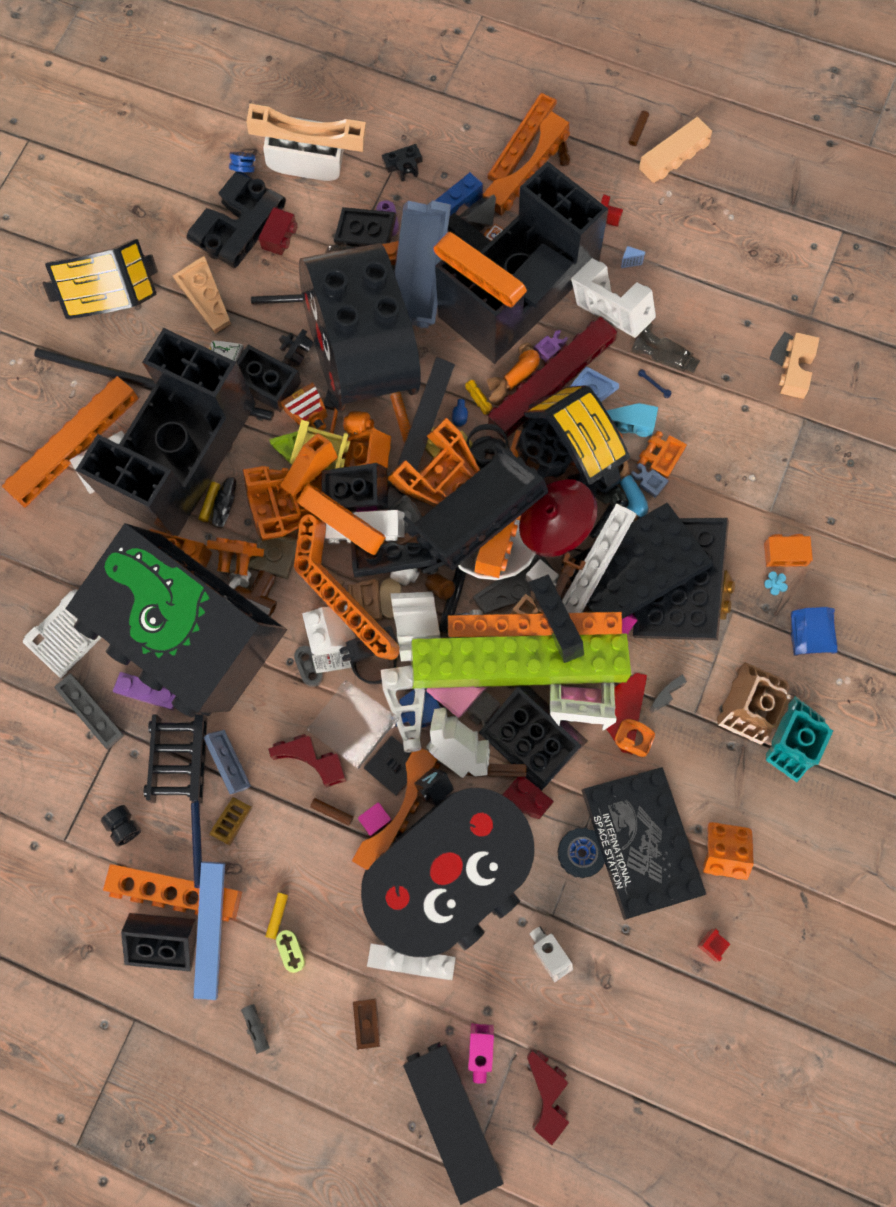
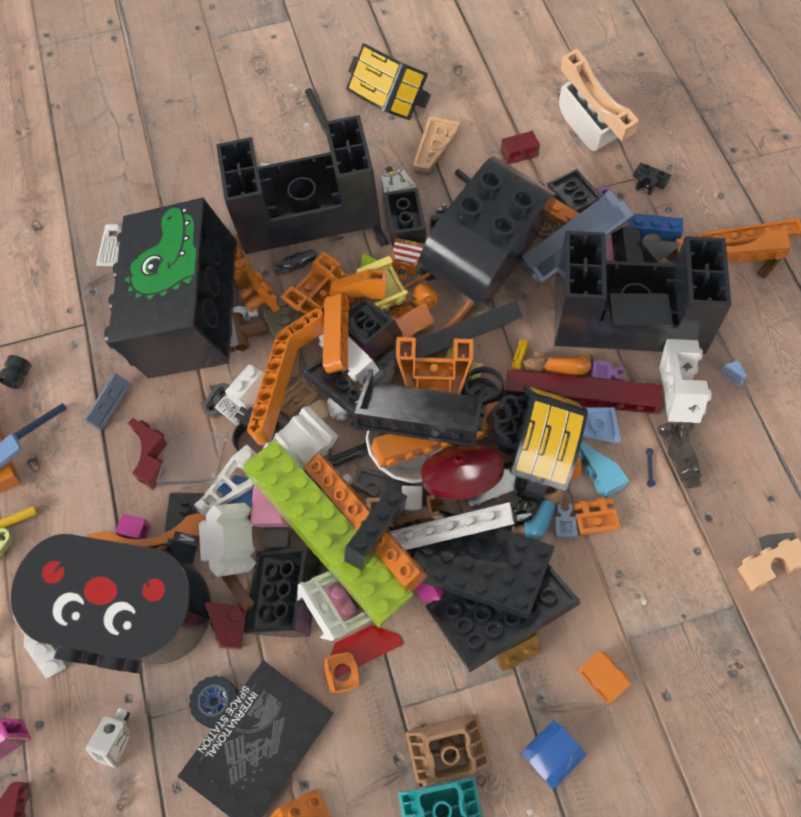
camera: 50 degrees right, 10 degrees down
(70, 441) = (269, 149): orange brick -> none
(89, 711) = (83, 296): dark grey plate -> none
(195, 769) = (95, 383): black fence -> none
(209, 502) = (276, 258): yellow piece -> none
(224, 817) = (50, 433): pearl gold slope -> none
(235, 236) = (488, 128): black connector -> none
(242, 162) = (547, 91): blue wheel -> none
(331, 811) = (120, 496): reddish brown piece -> none
(440, 586) = (346, 438): reddish brown brick -> none
(460, 414) = (494, 353): blue cylinder -> none
(480, 269) = (589, 257): orange beam -> none
(614, 213) = (752, 330): red panel -> none
(664, 697) = (391, 669): dark grey slope -> none
(776, 583) = (569, 689): medium azure plant -> none

